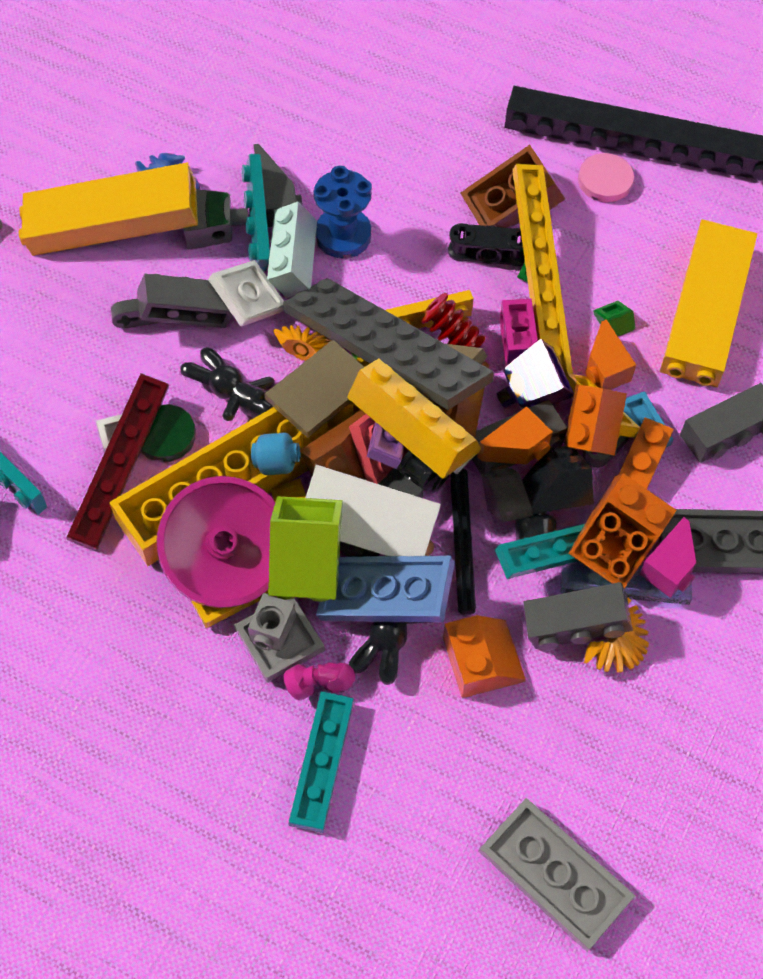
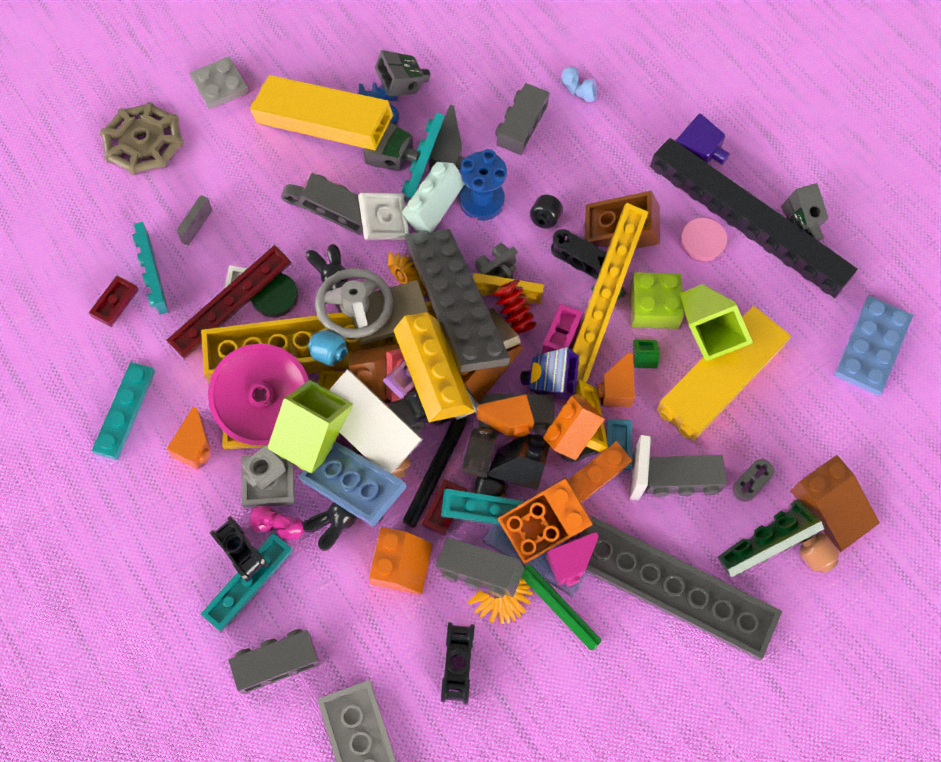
camera: 25 degrees right, 5 degrees up
(22, 389) = (194, 220): none -> flat silver tile
(58, 641) = (123, 411): none -> teal plate
(164, 636) = (191, 441): none -> orange slope
(175, 134) = (400, 73): none -> dark grey torso
(277, 391) = (354, 301): none -> light grey piece
(311, 729) = (239, 549): none -> black piece
(339, 129) = (522, 118): none -> dark grey brick
(368, 69) = (587, 90): none -> light blue arm
(405, 832) = (273, 661): none -> dark grey brick
(407, 286) = (502, 265): none -> dark grey hips
(424, 212) = (546, 210): none -> black head
(496, 588) = (433, 518): none -> dark red plate
(550, 74) = (704, 140): none -> dark purple torso
(596, 258) = (656, 300): none -> lime brick
(621, 754) = (457, 679): none -> black piece
(677, 247) = (714, 322): none -> lime slope
(686, 619) = (561, 607): none -> green axle
(688, 435) = (640, 467): none -> white tile
(697, 101) = (806, 210): none -> dark grey torso

